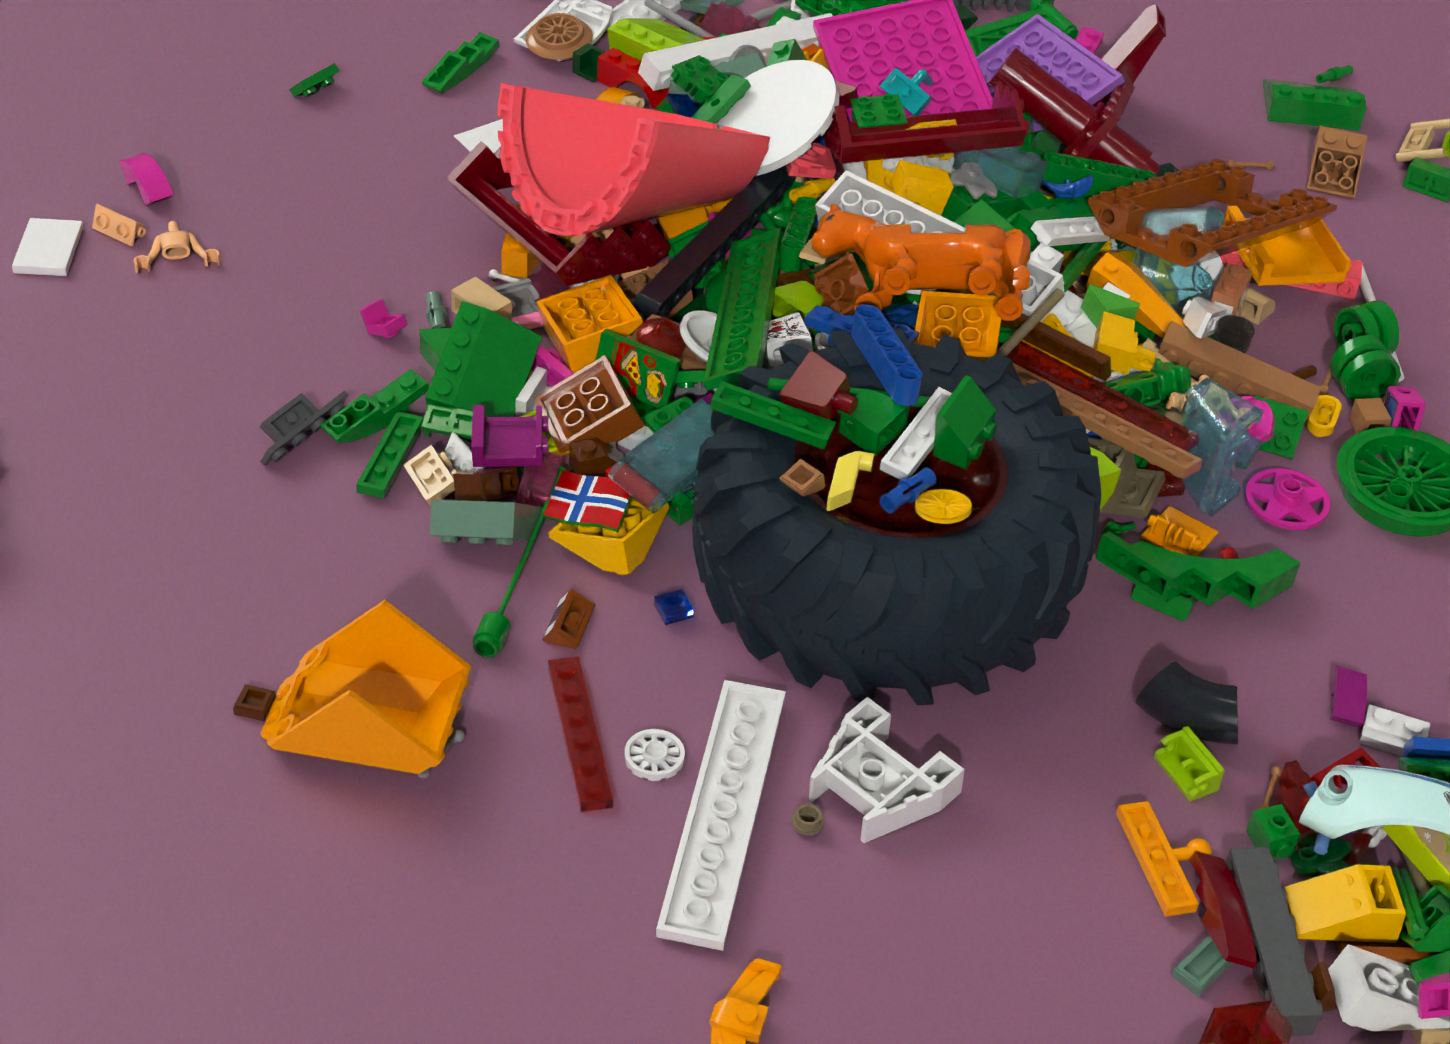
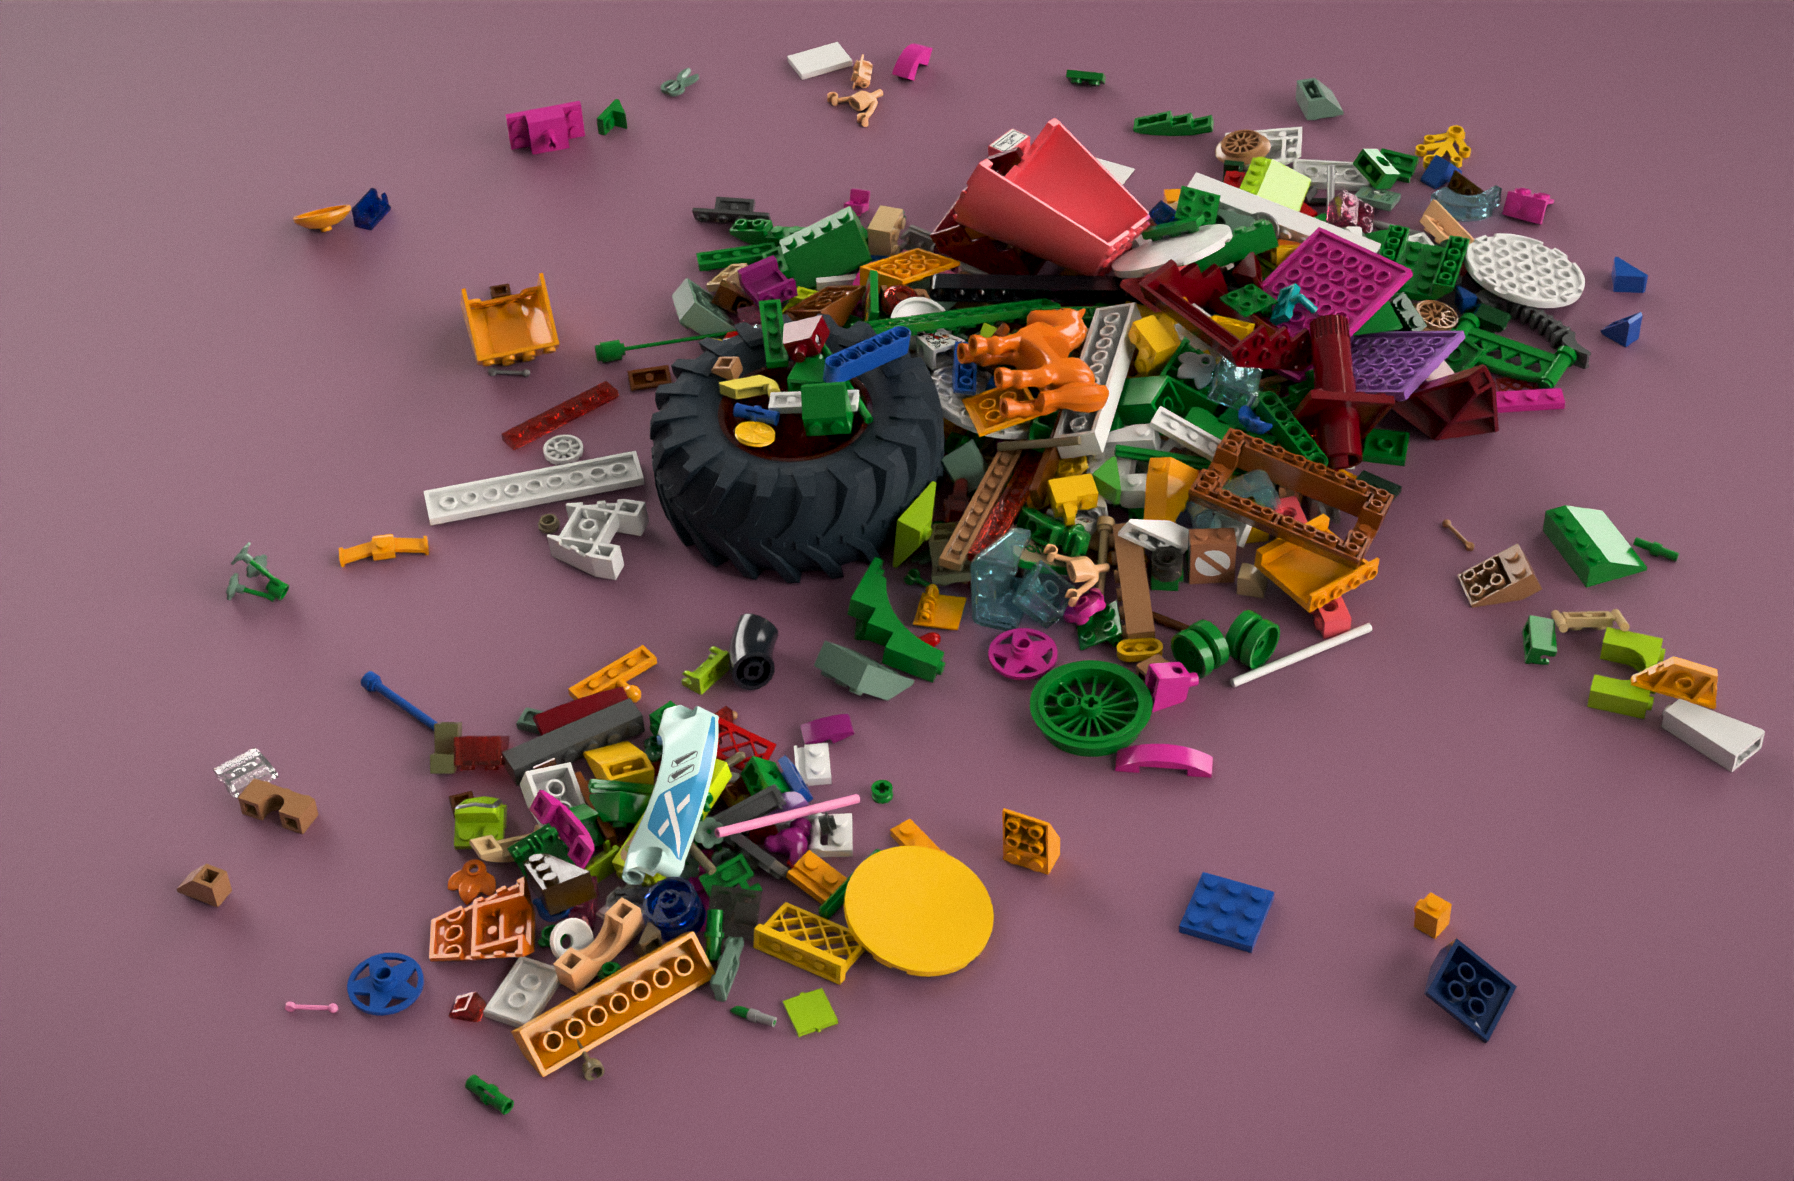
camera: 70 degrees right, 0 degrees up
(393, 177) = (1008, 141): none -> brick
(1268, 631) = (860, 672): none -> sand green wedge

